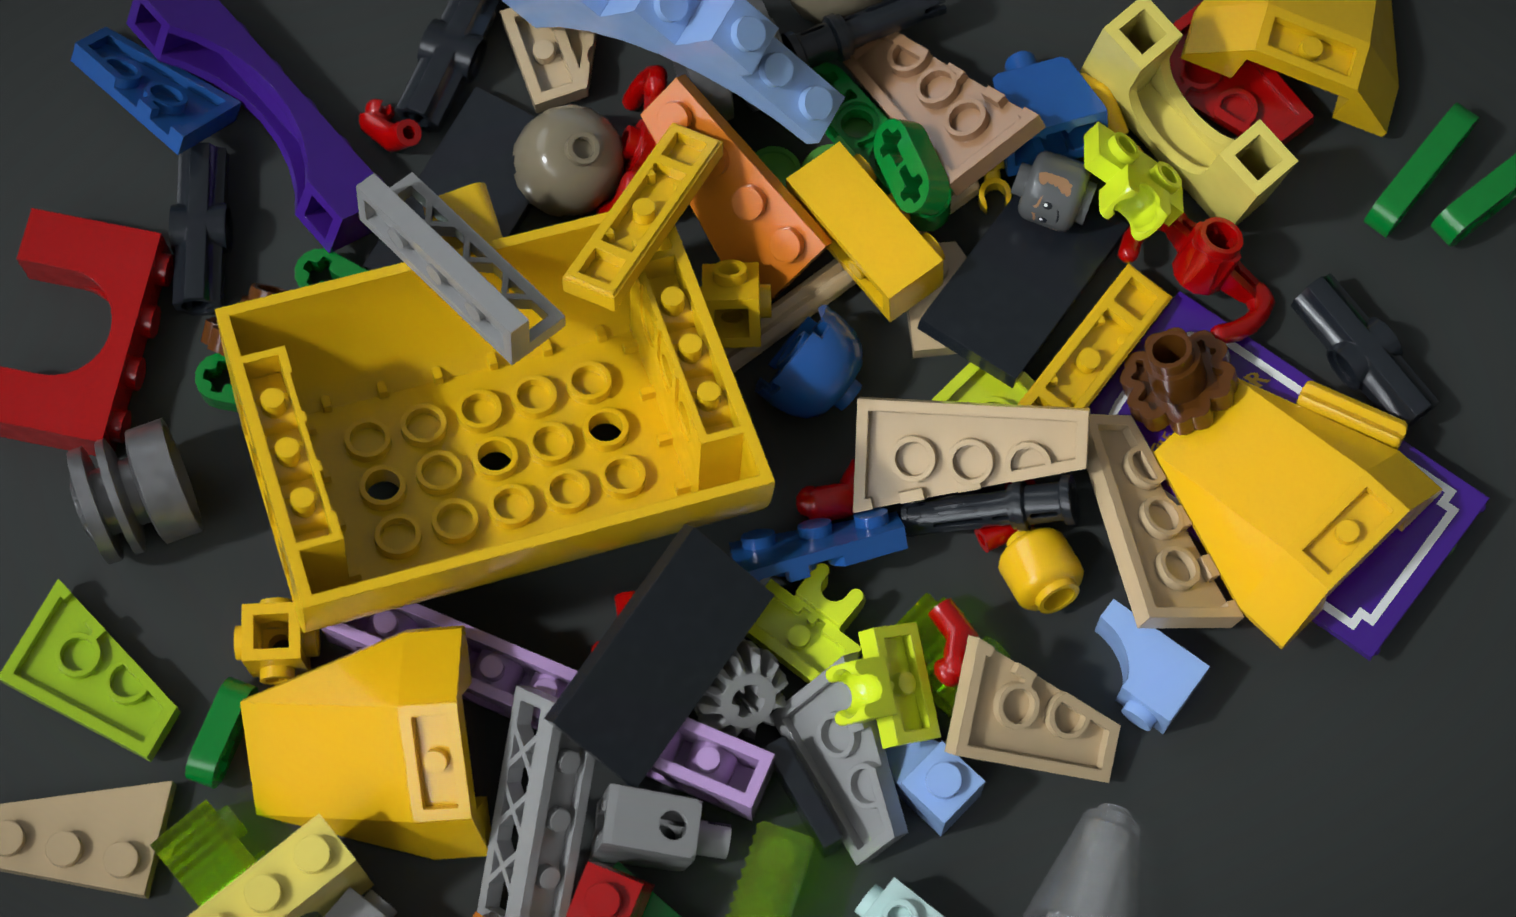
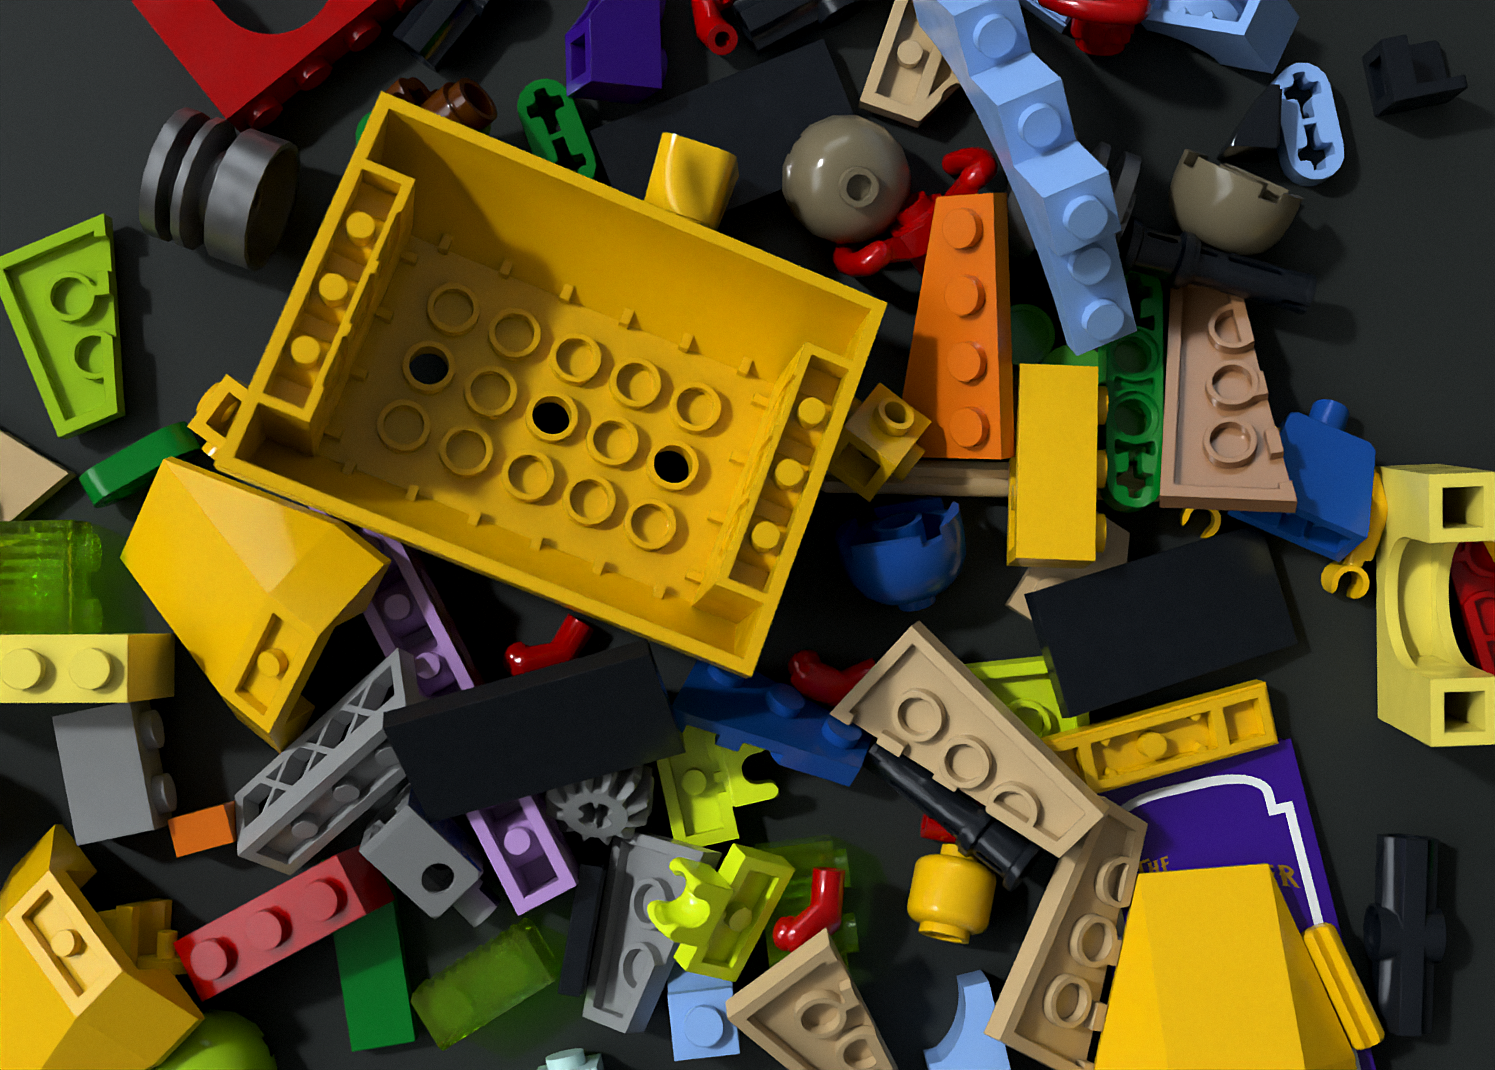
camera: 35 degrees right, 15 degrees up
(457, 276) = (619, 220): light grey fence -> none
(642, 217) = (847, 311): yellow plate -> none
(915, 175) = (1141, 446): green beam -> none
(1054, 191) = (1255, 567): dark grey head -> none
(1135, 183) = (1337, 624): neon yellow plate -> none
(1179, 381) = (1216, 830): reddish brown plant -> none
(1209, 263) = (1332, 738): red piece -> none

